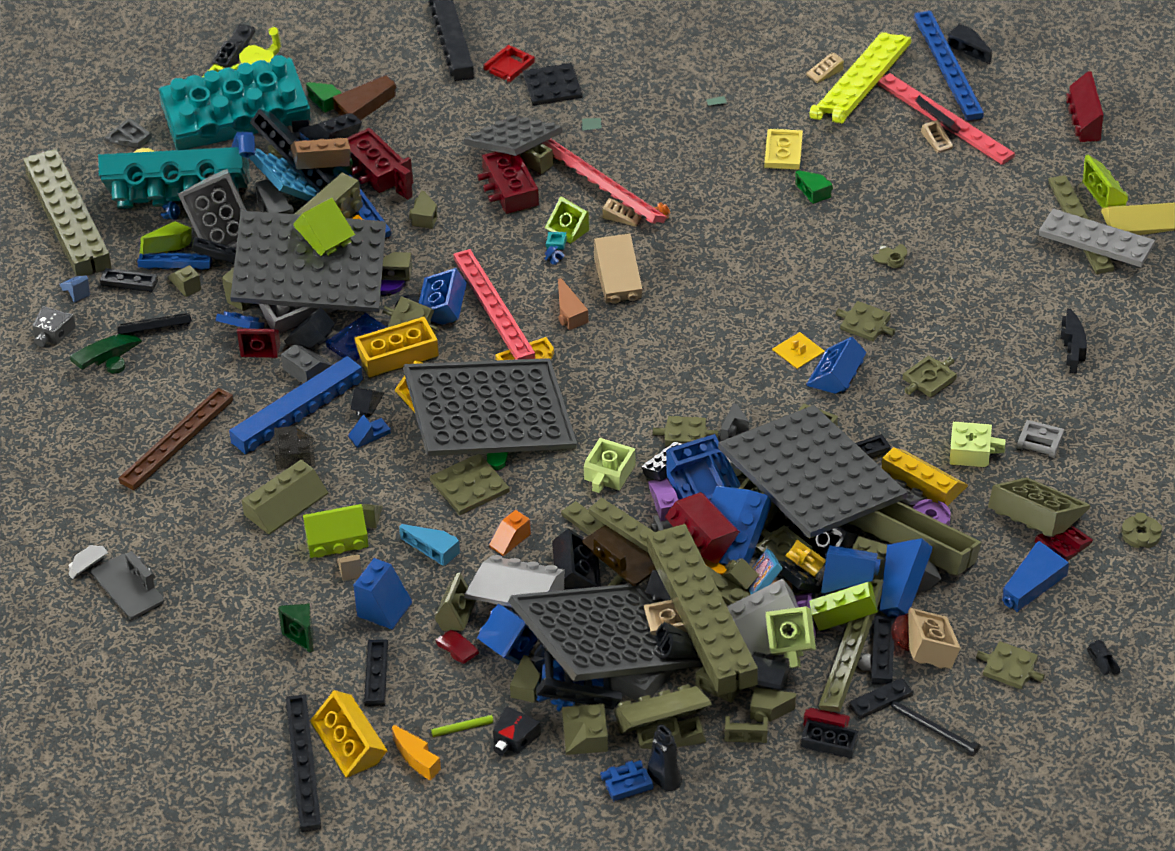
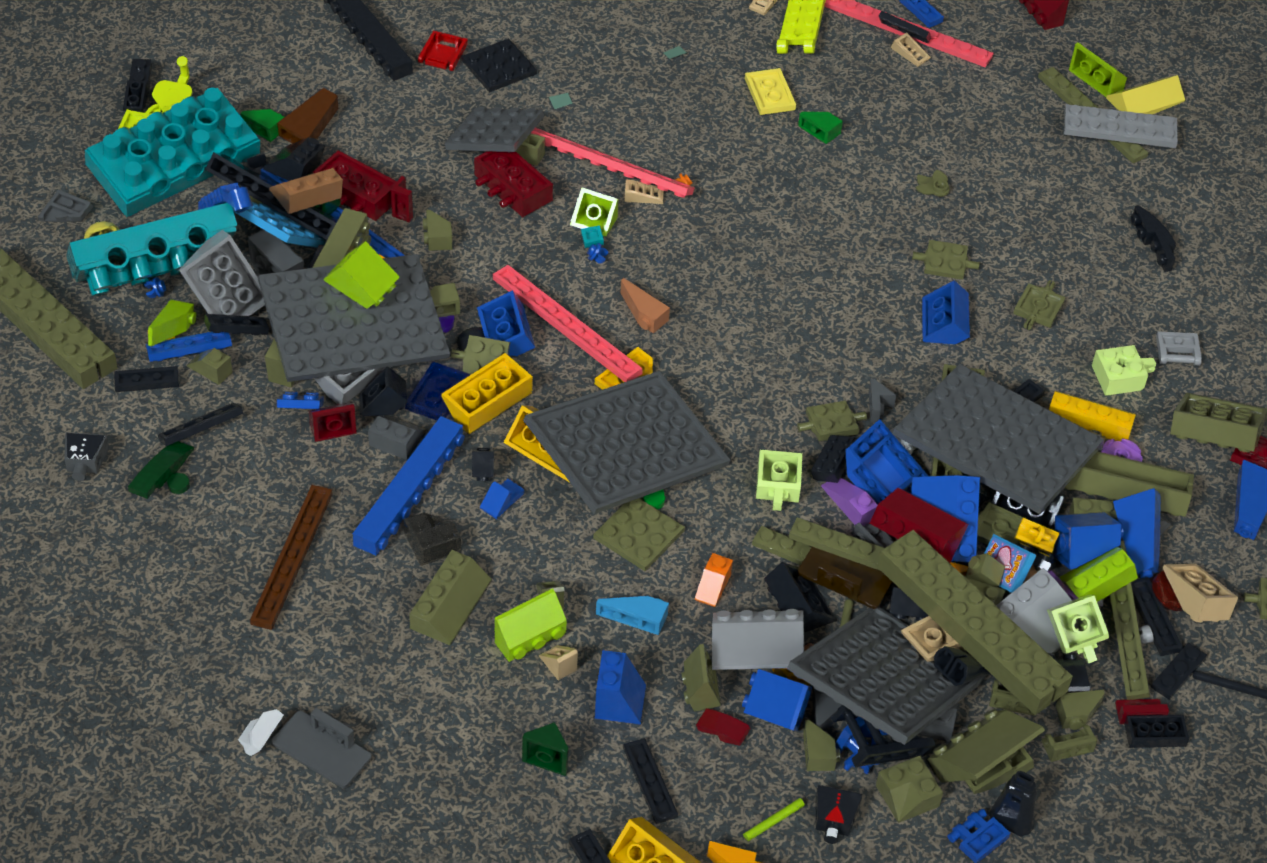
camera: 25 degrees left, 5 degrees up
(77, 287) = (91, 398): medium blue slope -> none
(617, 268) = (675, 255): tan slope -> none
(798, 350) = (895, 305): yellow piece -> none

